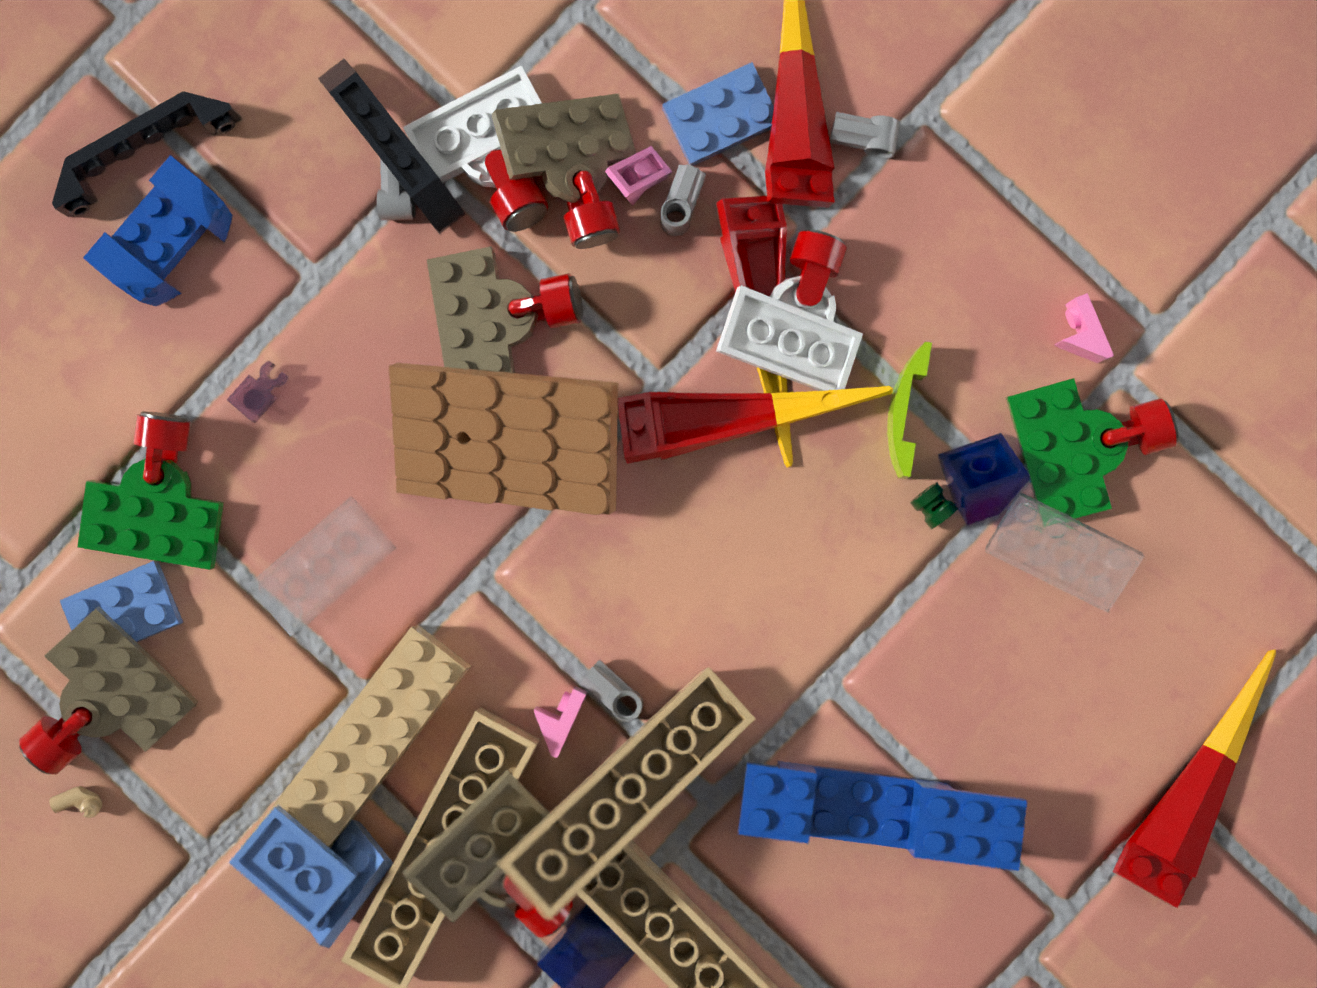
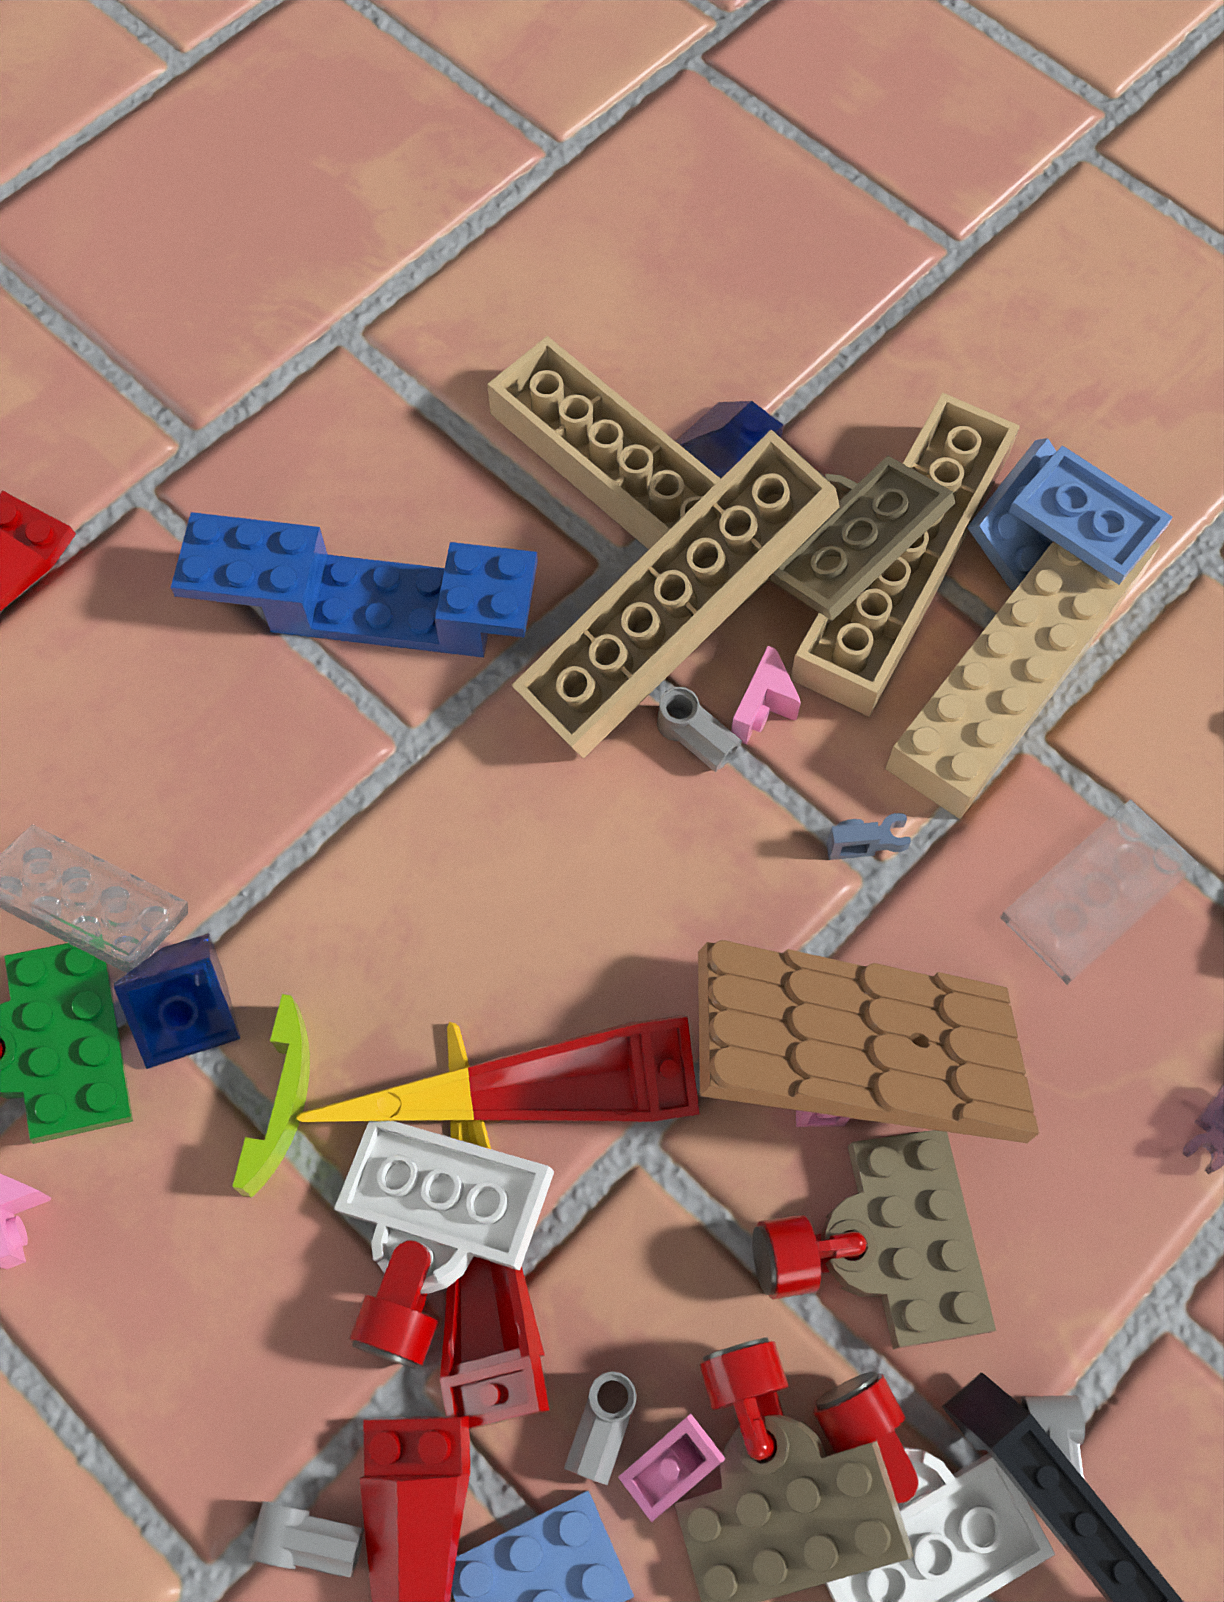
camera: 175 degrees right, 20 degrees down
(498, 604) = (860, 839): none -> sand blue plate
(930, 498) = (252, 963): dark green wheel -> none

